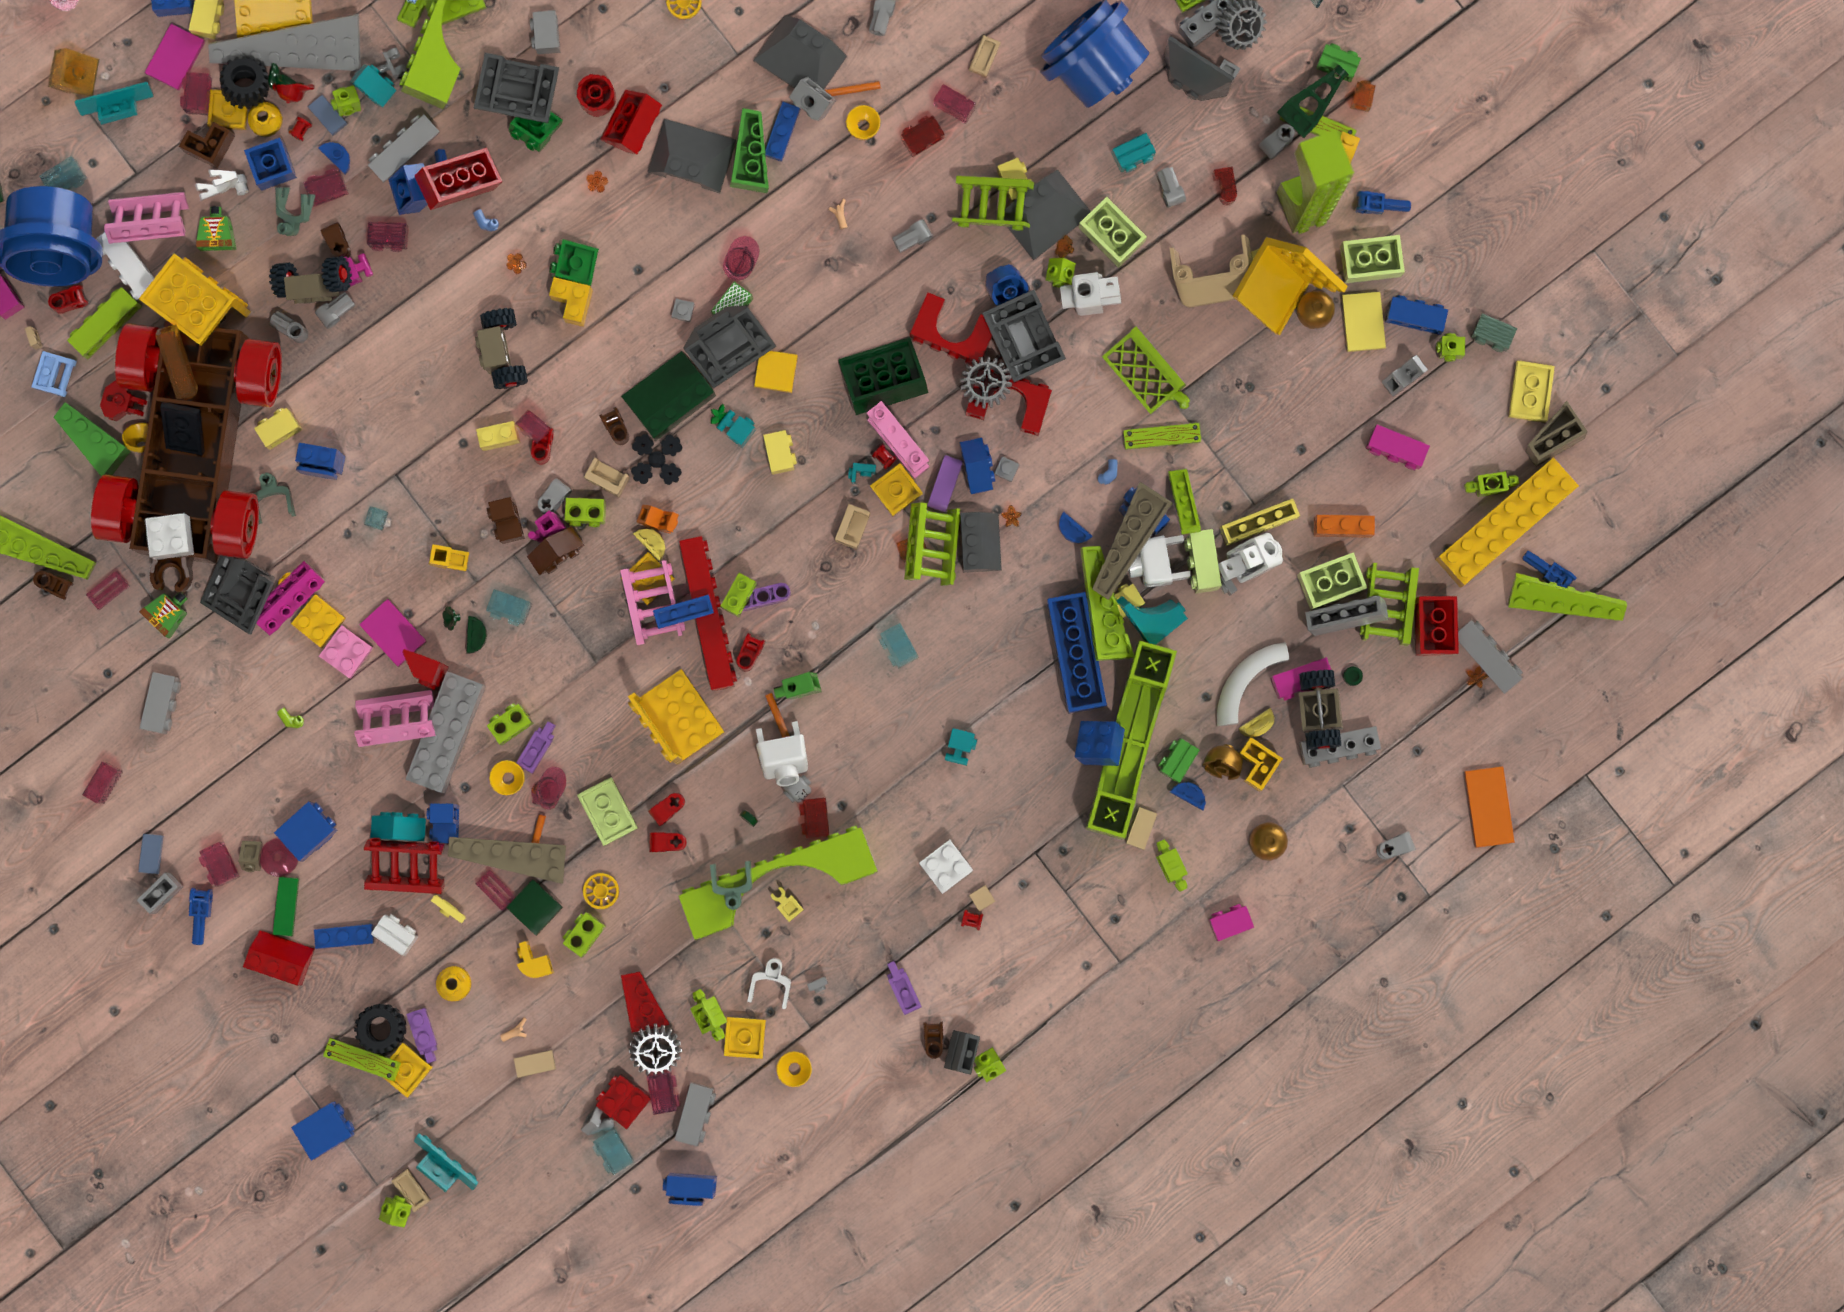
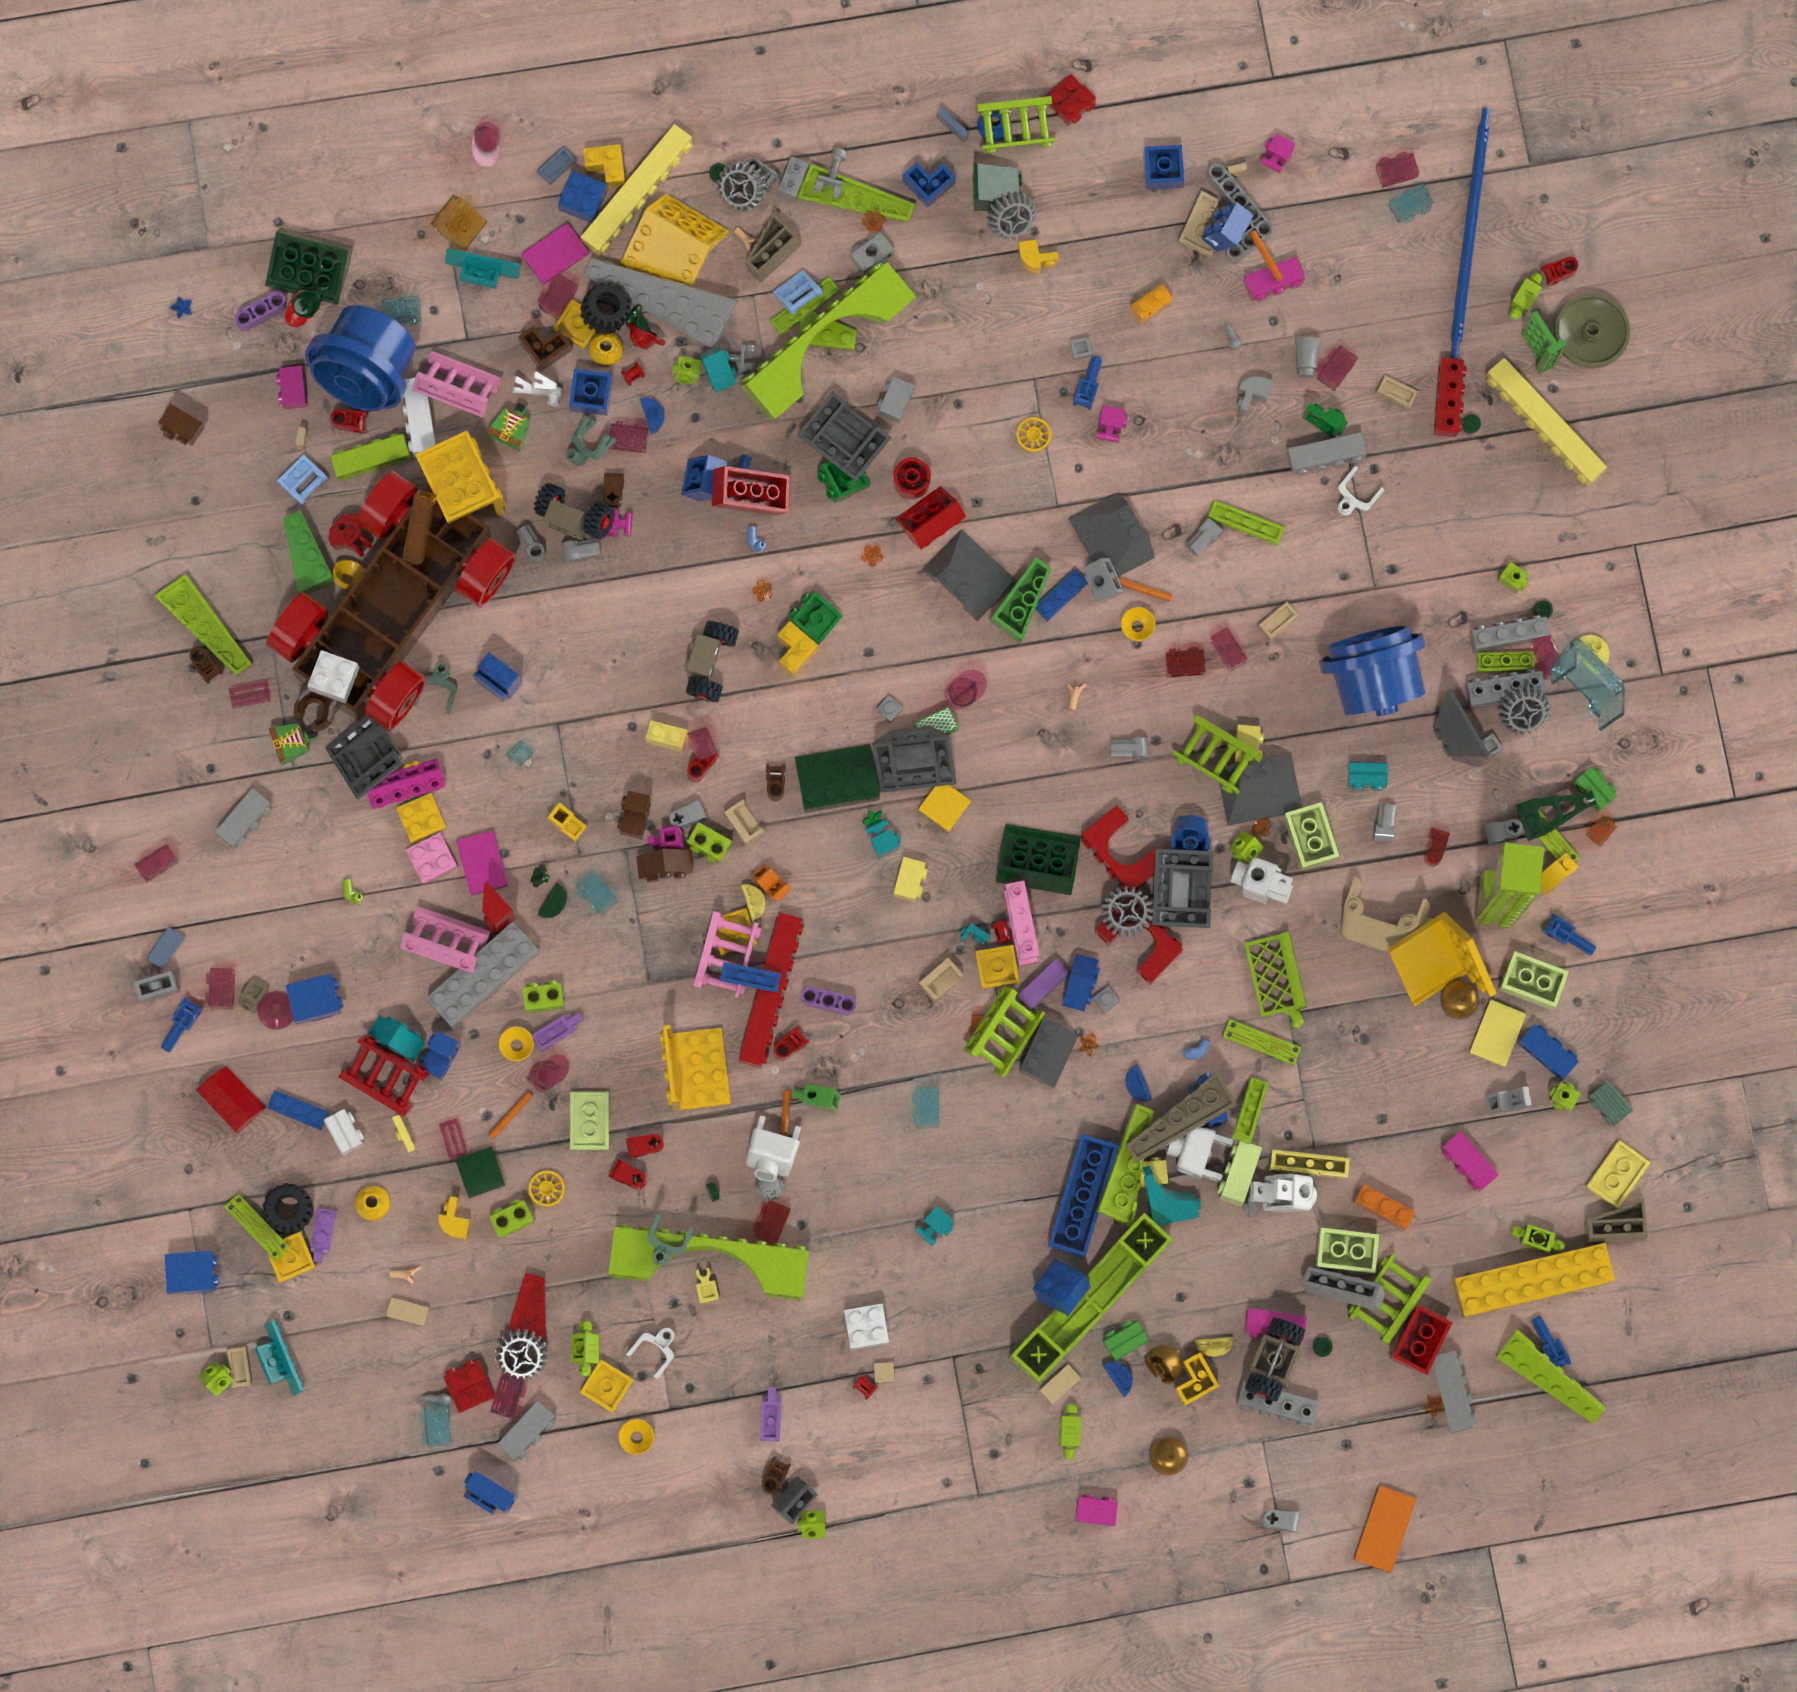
camera: 20 degrees right, 5 degrees down
(182, 428) = (392, 587): black tile -> none
(277, 428) = (474, 629): light yellow brick -> none
(286, 906) = (260, 1056): green tile -> none
(327, 116) = (662, 374): sand blue tile -> none
(387, 235) = (661, 508): clear pink brick -> none
(403, 148) = (715, 438): light grey brick -> none
(525, 858) = (492, 1122): dark tan wing -> none
(592, 1121) = (432, 1389): light grey plate -> none
(656, 459) = (797, 829): black plant -> none
(738, 595) = (807, 987): lime brick -> none
(818, 985) = (696, 1373): light grey plate -> none
(1241, 676) = (1221, 1295): white brick -> none

